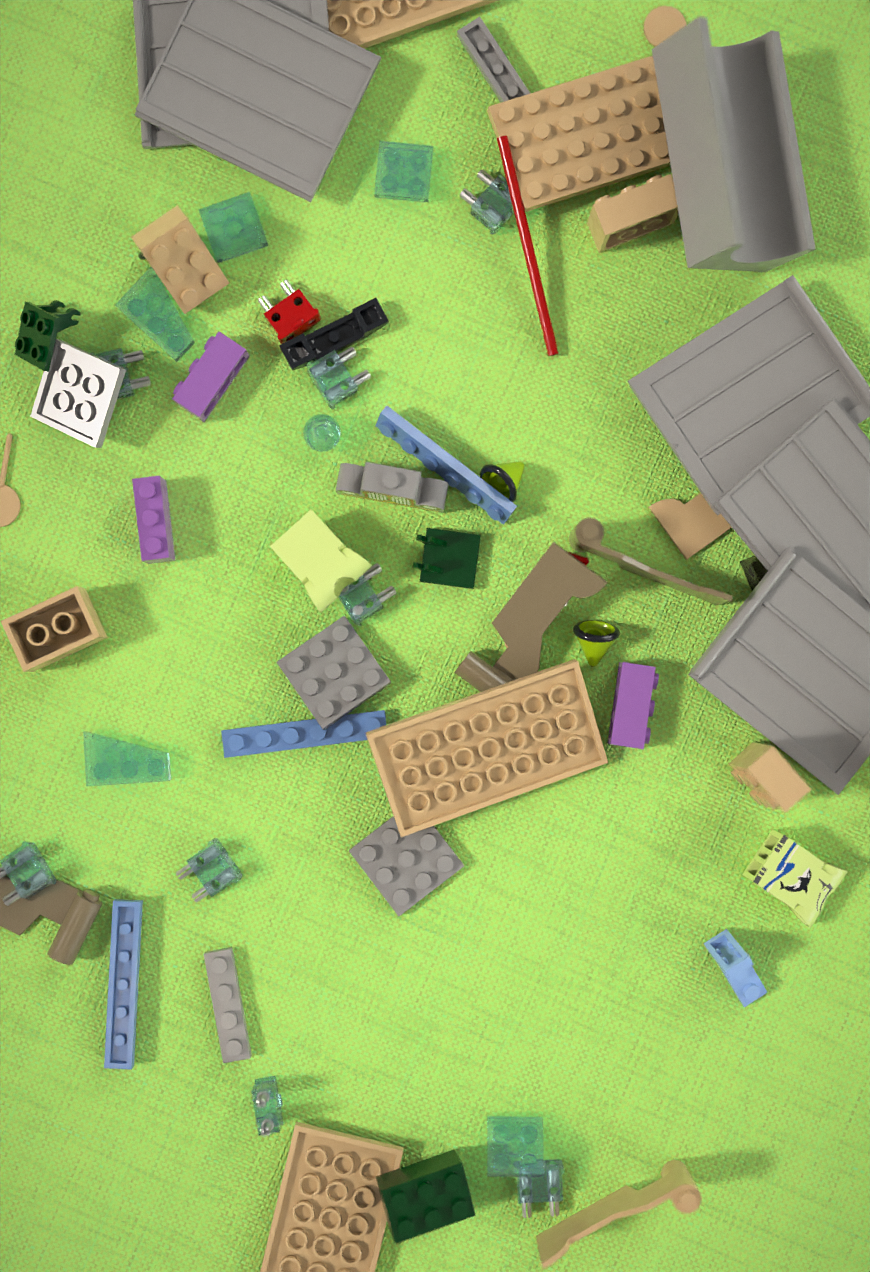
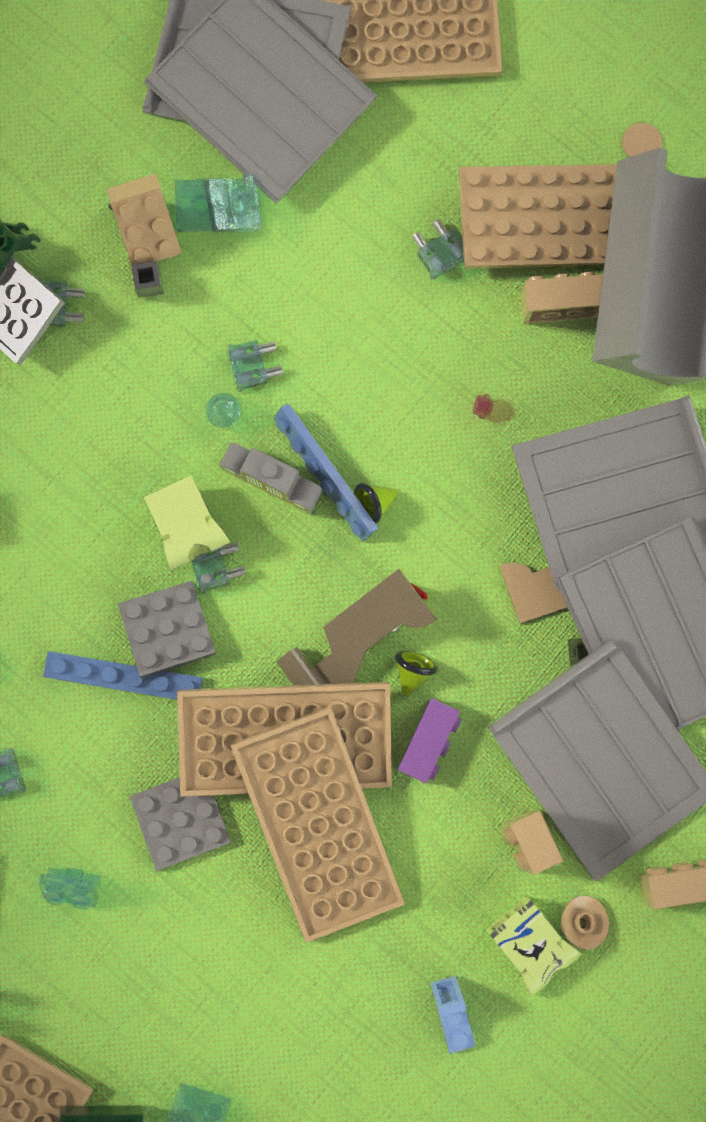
camera: 15 degrees right, 5 degrees down
(153, 519) = (47, 443): medium lavender brick -> none
(155, 314) = (107, 261): clear light blue wing -> none
(202, 320) = (147, 279): none -> dark grey brick
(210, 376) = (138, 330): medium lavender brick -> none
(267, 215) = (233, 204): none -> clear light blue plate
(293, 318) = (228, 300): red piece -> none
(318, 960) = (69, 887): none -> clear light blue plate
(335, 336) = (262, 328): black slope -> none
(403, 171) = (368, 200): clear light blue tile -> none
(449, 558) = (303, 557): dark green plate -> none
(491, 61) = (476, 127): light grey plate -> none
(527, 245) = (458, 300): red piece -> none
(546, 822) = (317, 824): none -> tan plate
(584, 349) = (483, 406): none -> plate
(588, 537) = (431, 576): dark tan door -> none
(849, 836) = (594, 921): none -> tan dish

